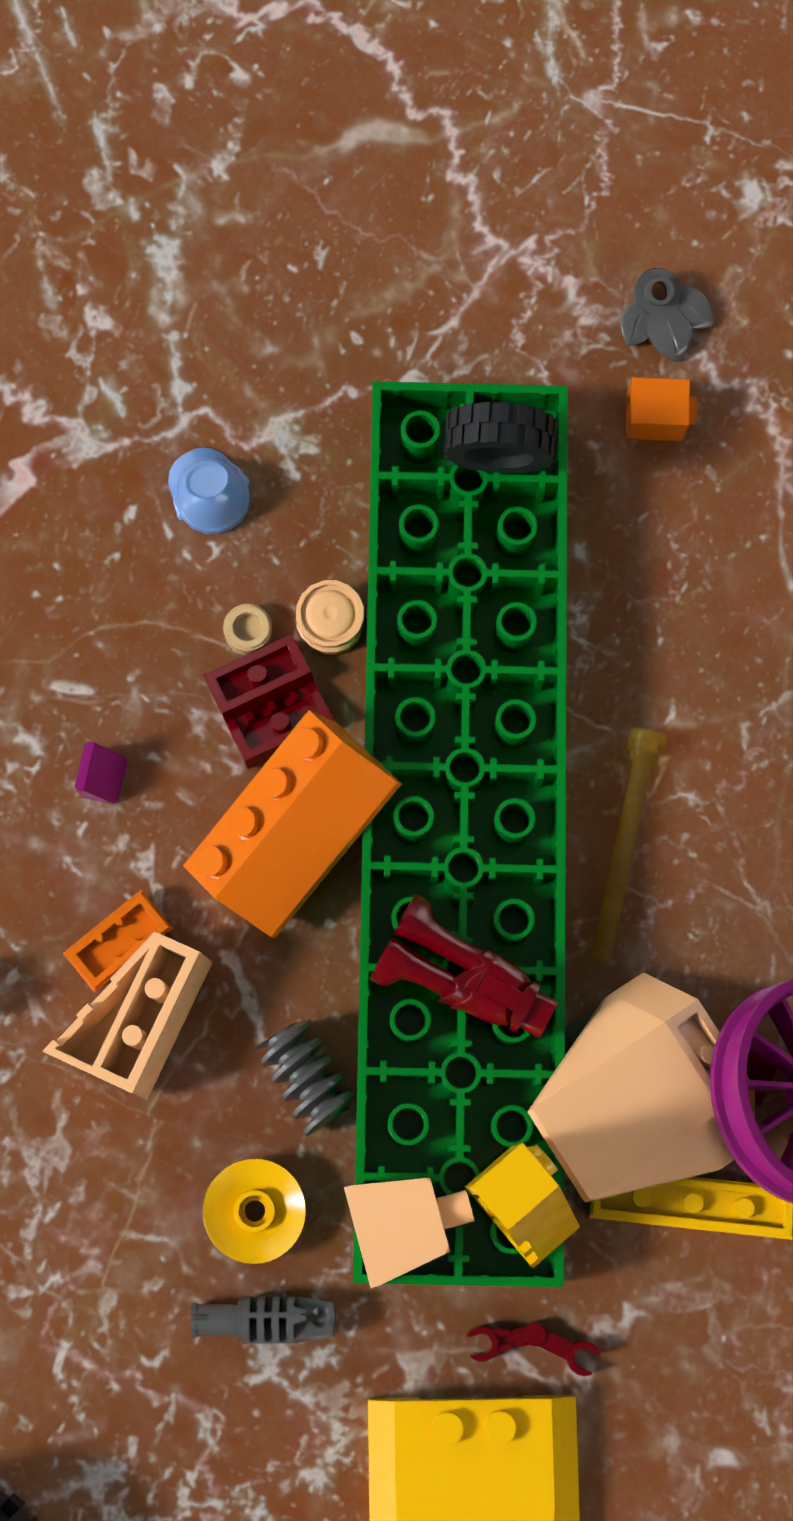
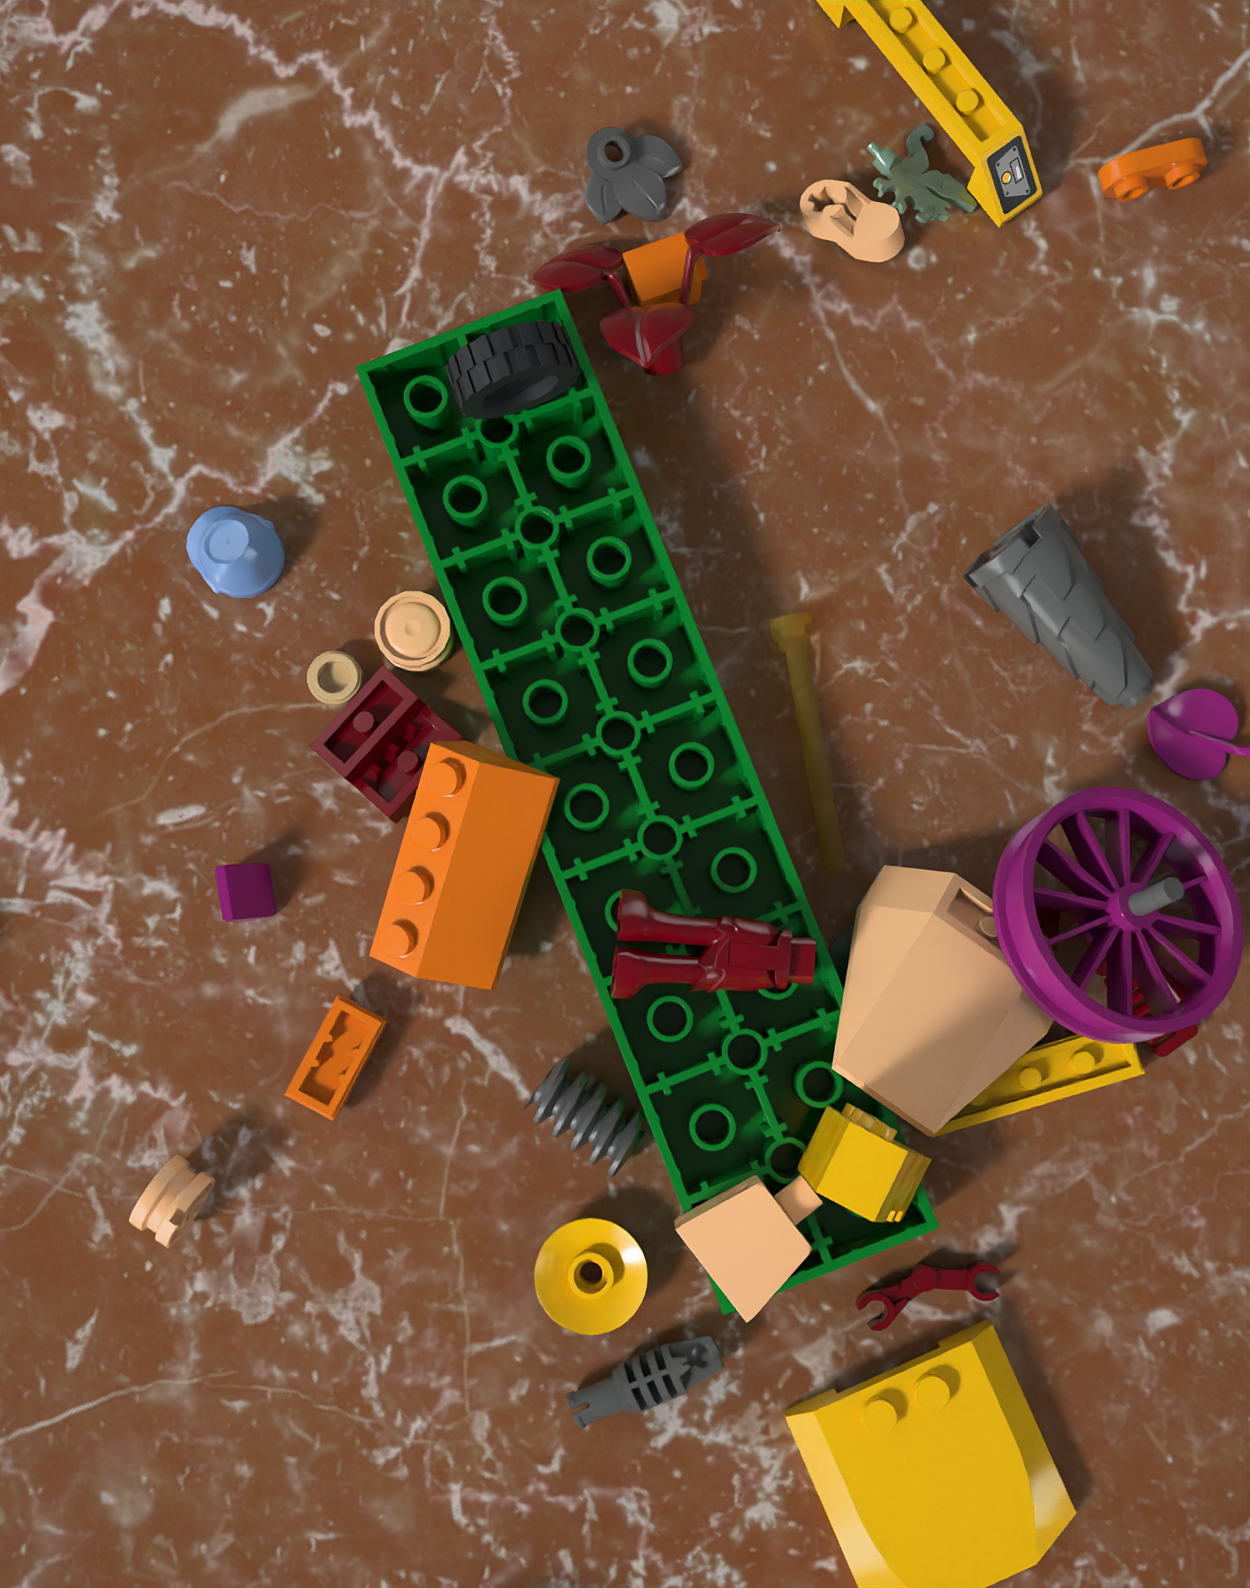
camera: 15 degrees left, 5 degrees up
(136, 1017) = (388, 1132): light nougat wedge -> none
(629, 454) = (652, 332): none -> dark red plant

